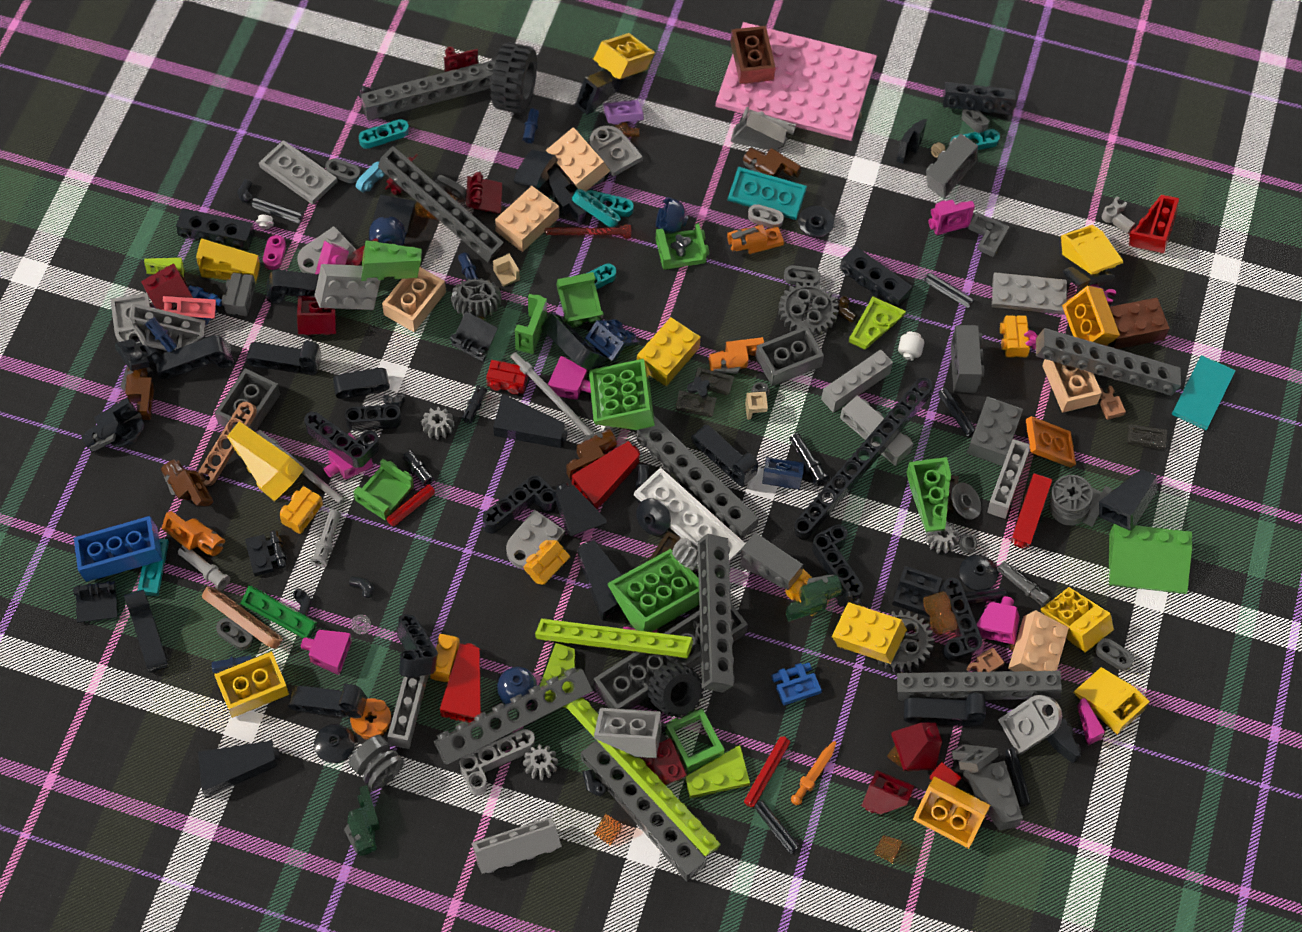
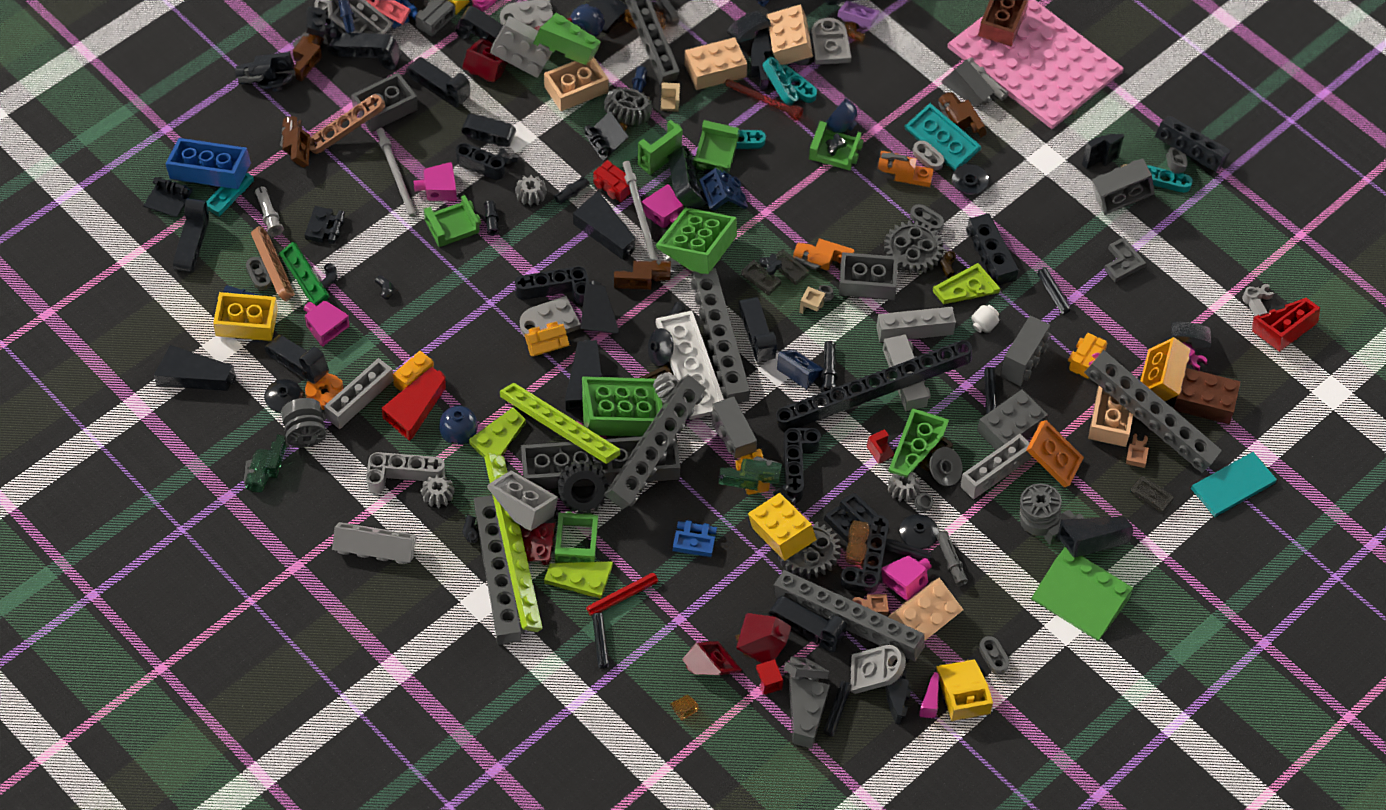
camera: 30 degrees right, 5 degrees down
(193, 534) = (275, 182): orange plate -> none
(267, 463) = (368, 155): yellow wedge -> none
(301, 509) = (374, 204): light orange brick -> none
(318, 427) = (444, 178): black beam -> none
(324, 545) = (374, 241): light grey pin -> none
(332, 254) = (530, 16): dark pink torso -> none
(360, 629) = (364, 320): clear plate -> none
(410, 505) = (466, 244): red axle -> none
(419, 653) = (389, 357): black beam -> none
(483, 193) = (692, 27): dark red hinge -> none
(579, 688) = (366, 443): dark grey brick -> none
(606, 474) = (645, 296): red slope -> none
(608, 829) = (459, 571): clear orange slope -> none
(669, 351) = (765, 224): yellow brick -> none
(807, 783) = (651, 620): orange sword -> none
(898, 513) = (879, 447): none -> red panel
(951, 217) = (1094, 229): dark pink plate -> none
(951, 812) = (754, 701): light orange brick -> none
(1028, 293) = (1126, 326): light grey plate -> none
(1031, 511) = (997, 501): red slope -> none
(1085, 619) = (982, 610): yellow slope -> none
(1090, 249) = (1205, 313): yellow slope -> none

